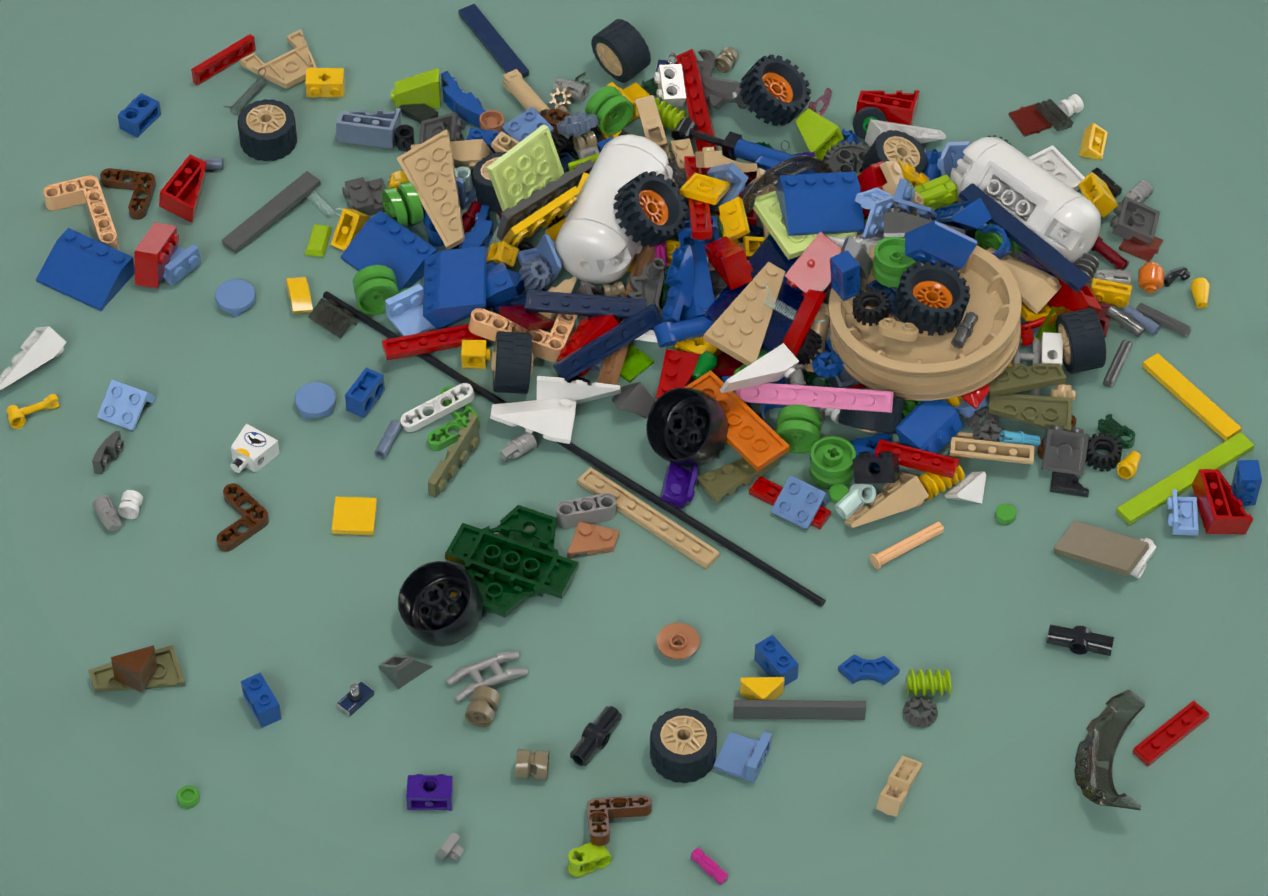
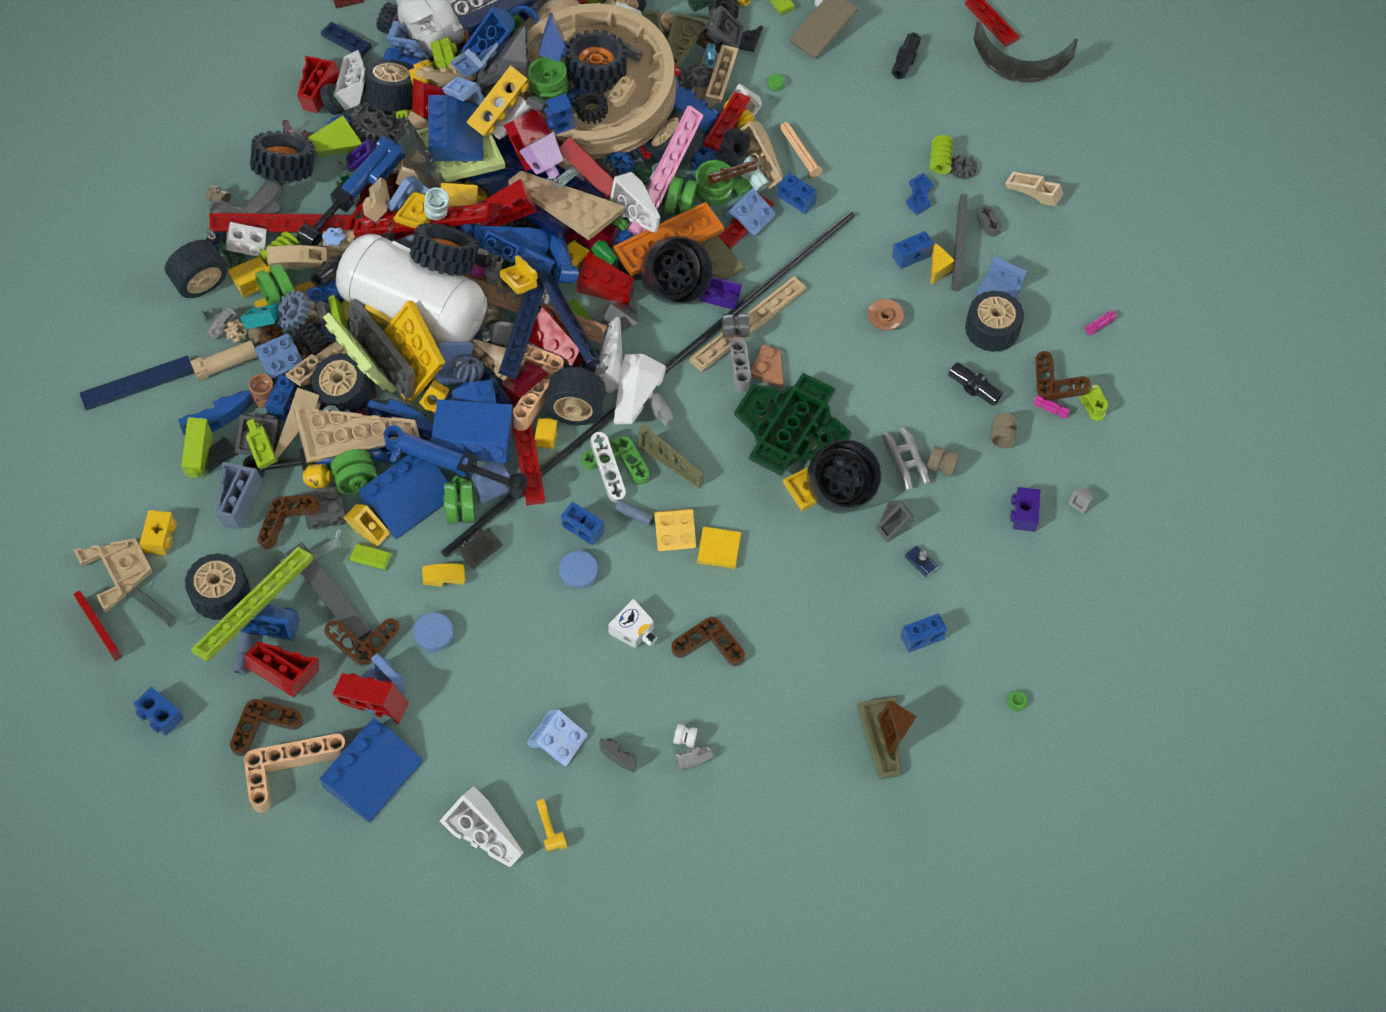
camera: 85 degrees left, 10 degrees up
(215, 247) = (365, 647): none -> reddish brown beam
(236, 169) = (274, 623): none -> blue slope
(239, 146) = (252, 604): none -> lime tile
(359, 166) = (279, 509): none -> reddish brown beam
(372, 470) = (675, 529): none -> yellow bracket
(410, 276) = (462, 464): none -> blue piece
(422, 130) = (260, 445): none -> lime hinge
(572, 104) = (260, 316): none -> teal slope
(577, 817) = (1051, 406): none -> dark pink axle
(631, 495) = (735, 325): none -> dark grey wheel
(643, 287) = (520, 276): none -> yellow bracket
(680, 144) = (333, 236): none -> light blue plant
(700, 189) = (436, 203): none -> light aqua wheel
(794, 275) = (543, 155): none -> lavender torso
(821, 447) = (717, 176): none -> reddish brown pin
(836, 543) = (797, 193): none -> blue brick
(842, 743) = (991, 219): none -> dark grey beam
(850, 221) = (477, 120): none -> yellow brick
(965, 125) = (345, 39): none -> dark blue tile

